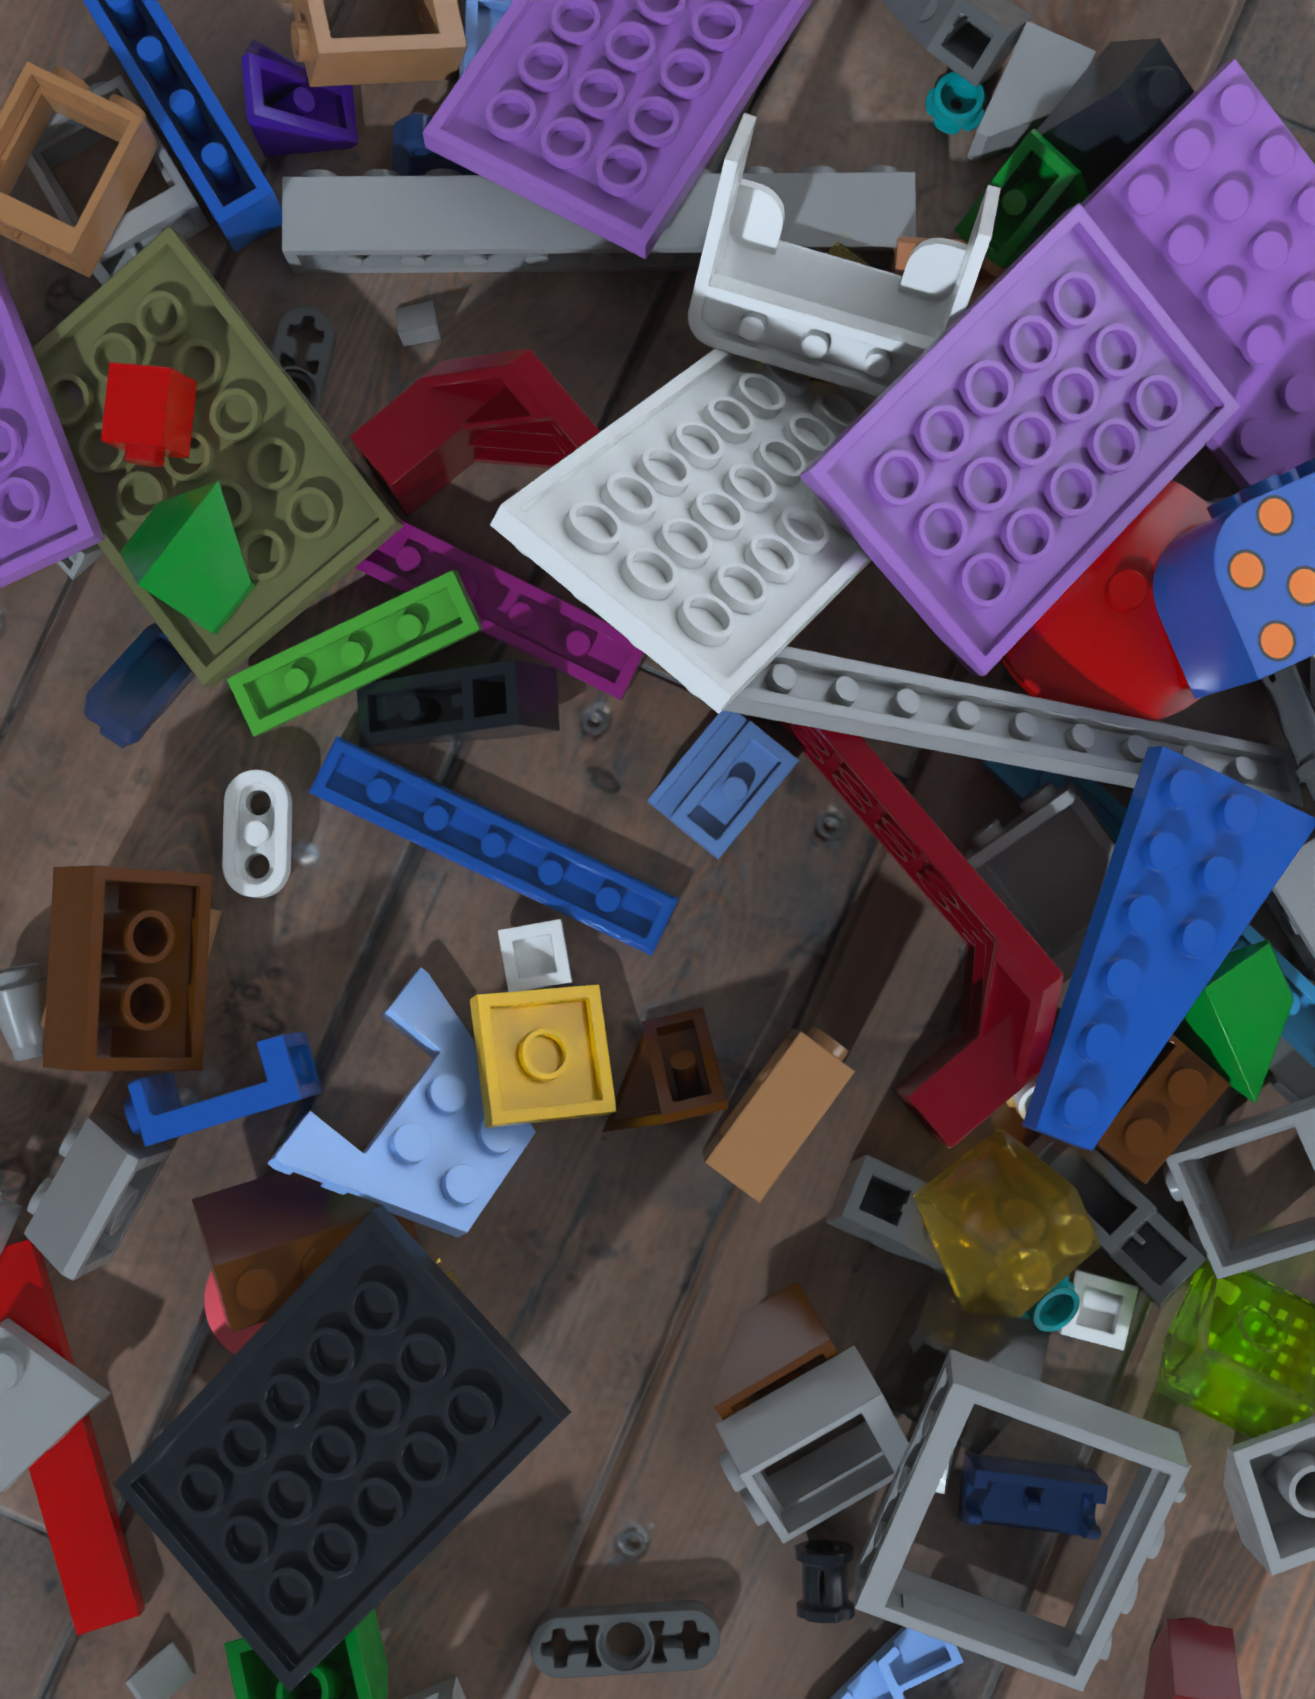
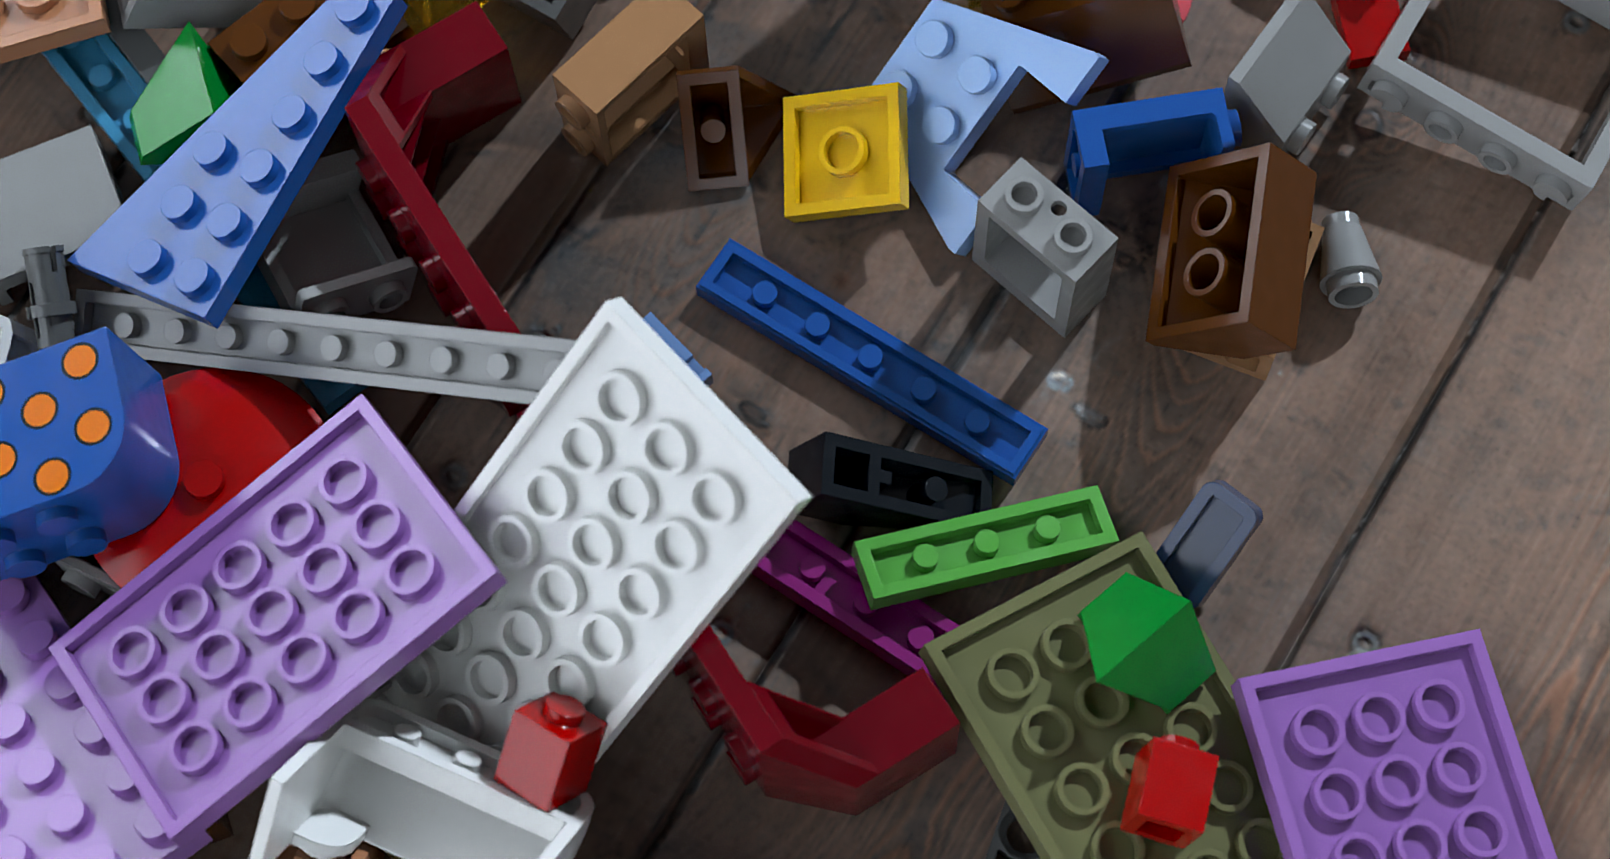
camera: 170 degrees left, 15 degrees down
(254, 835) = (1102, 397): white plate -> none
(337, 967) = (1042, 258): none -> light grey window
(535, 956) = (842, 249): white plate -> none
(735, 351) = (550, 750): none -> red brick

